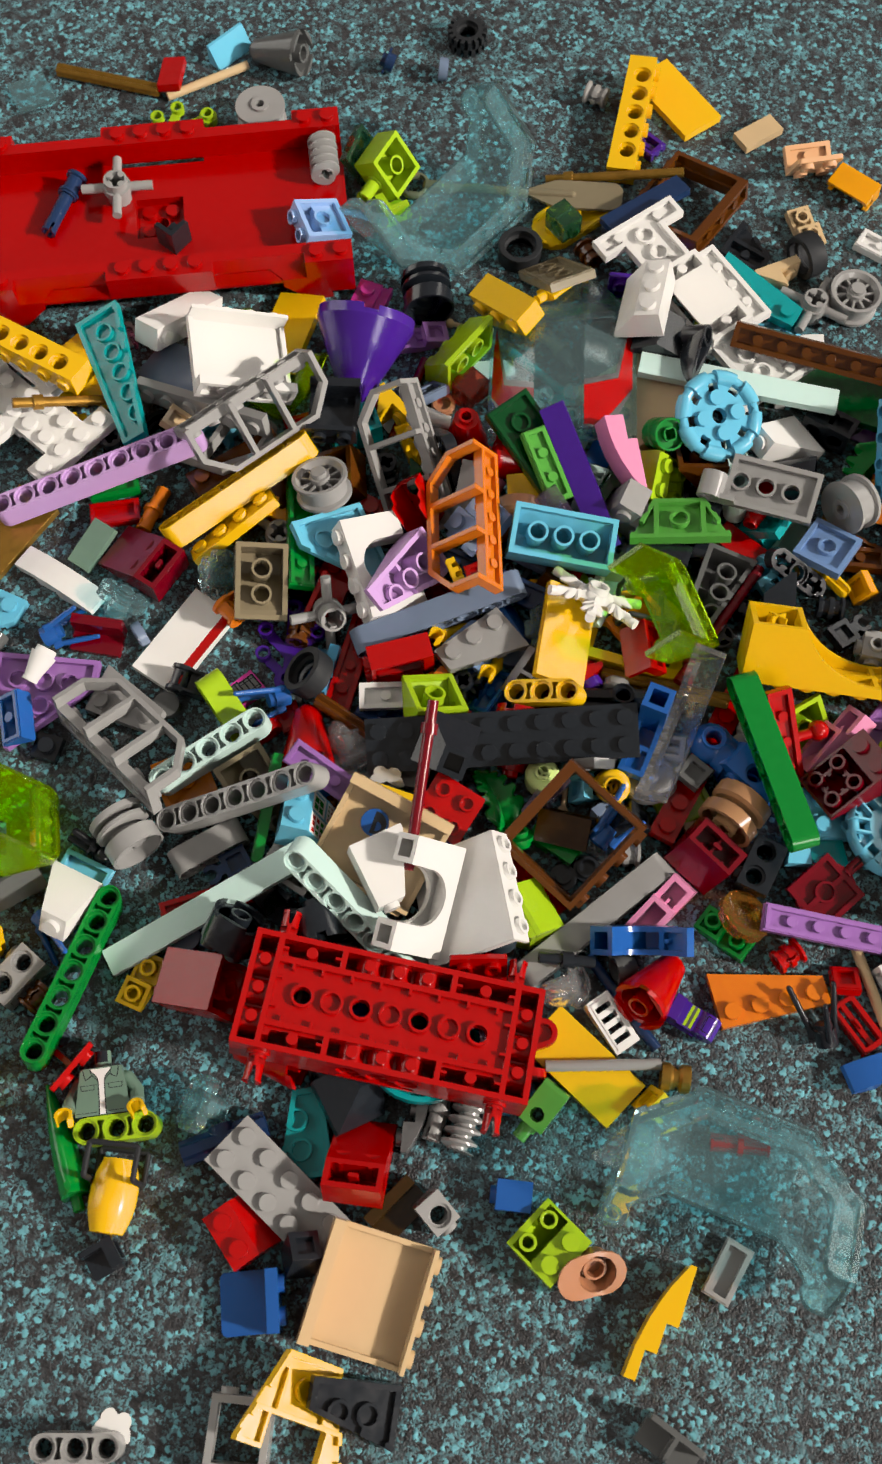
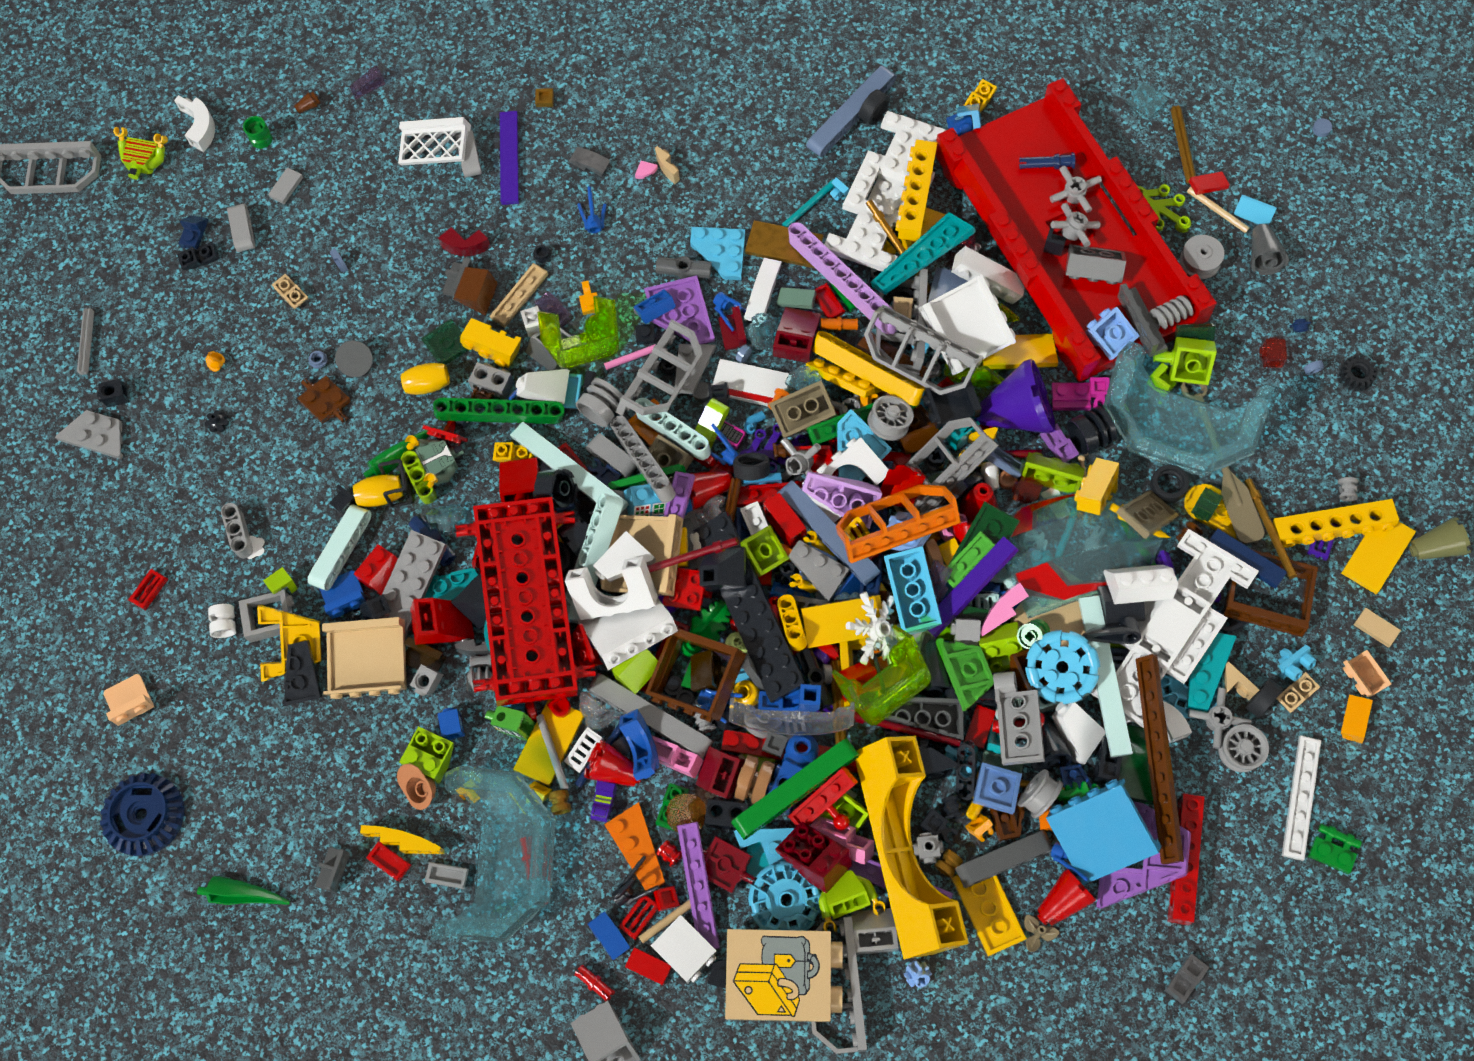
camera: 75 degrees right, 0 degrees up
(39, 662) = (696, 302): white cone -> none
(72, 778) = (629, 357): none -> bright pink bar
(118, 733) = (668, 371): none -> black plate
(165, 204) = (1075, 225): none -> light grey bar
(178, 1284) = (339, 547): none -> light aqua beam
(195, 1397) = (280, 580): none -> lime panel
(224, 205) = (1095, 264): none -> slope
(239, 659) = (751, 422): none -> dark azure arm
(342, 188) = (1141, 320): none -> dark grey fence
(374, 821) = (654, 544): blue tile -> none
(377, 272) = (1098, 389): none -> dark pink plate
(409, 95) = (1273, 352): none -> clear red brick
(566, 959) = (611, 702): black bar -> none
(680, 1353) = (388, 861): none -> red tile
(690, 35) = (1442, 541): none -> olive cone
(746, 248) = (1250, 651): black wing -> none
(769, 216) = (1293, 659): none -> medium azure hips
(832, 469) = (1074, 774): none -> blue piece

